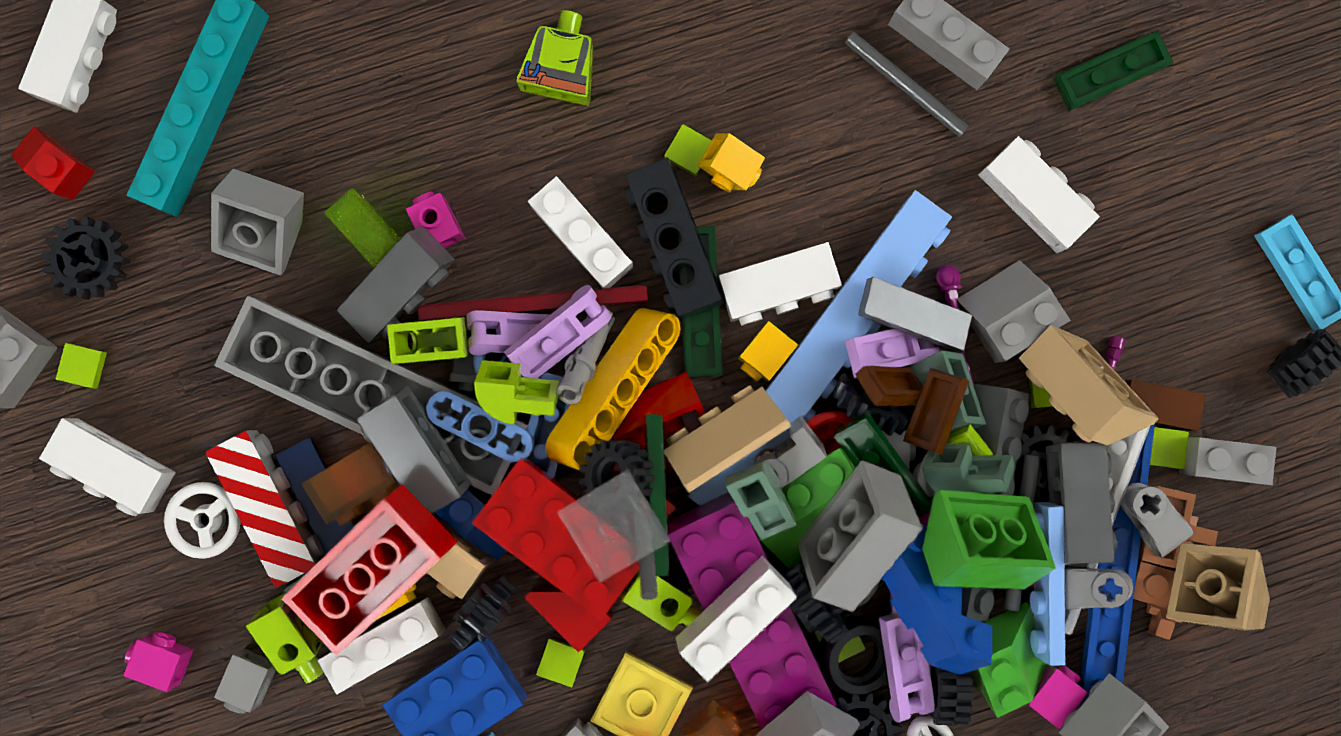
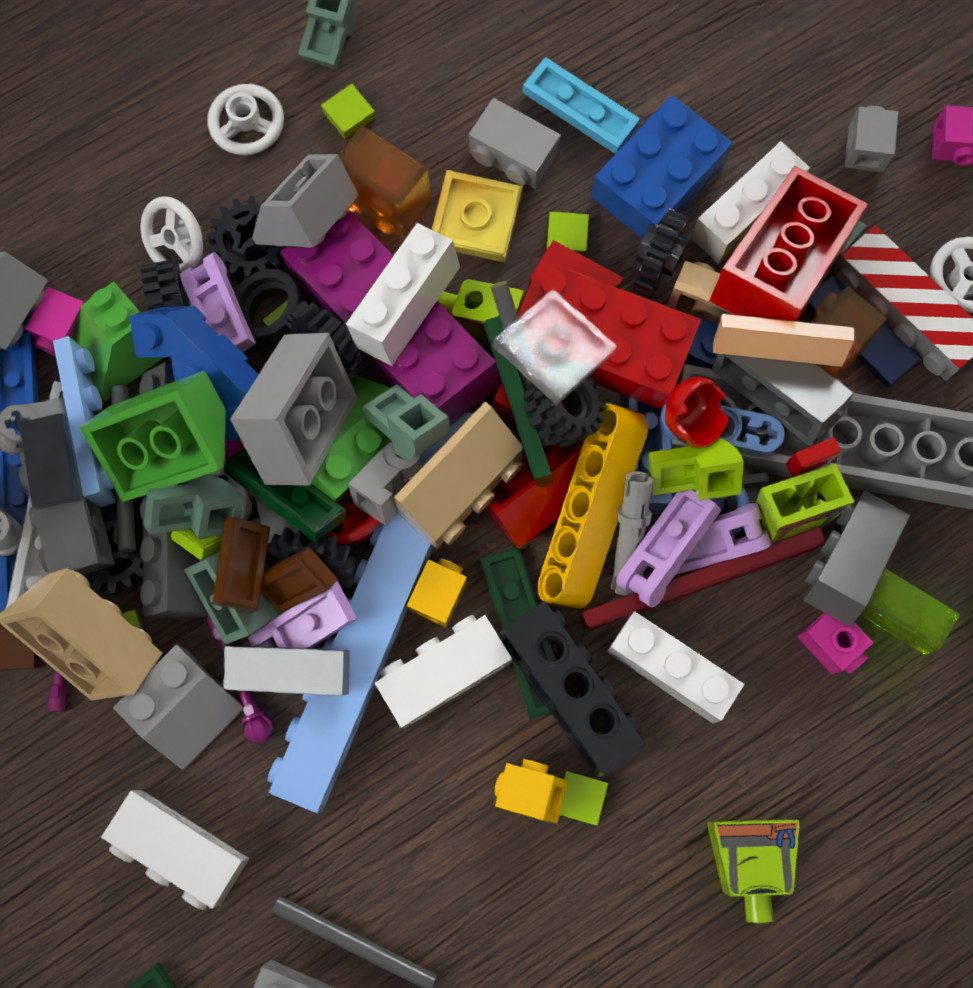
camera: 165 degrees right, 10 degrees down
(286, 639) = (853, 175): lime torso -> none
(405, 482) = (783, 340): none -> light nougat tile
(408, 375) = (813, 457): none -> red tile
(502, 437) = (695, 412): none -> red hair
(1088, 544) = (49, 461): none -> black tile

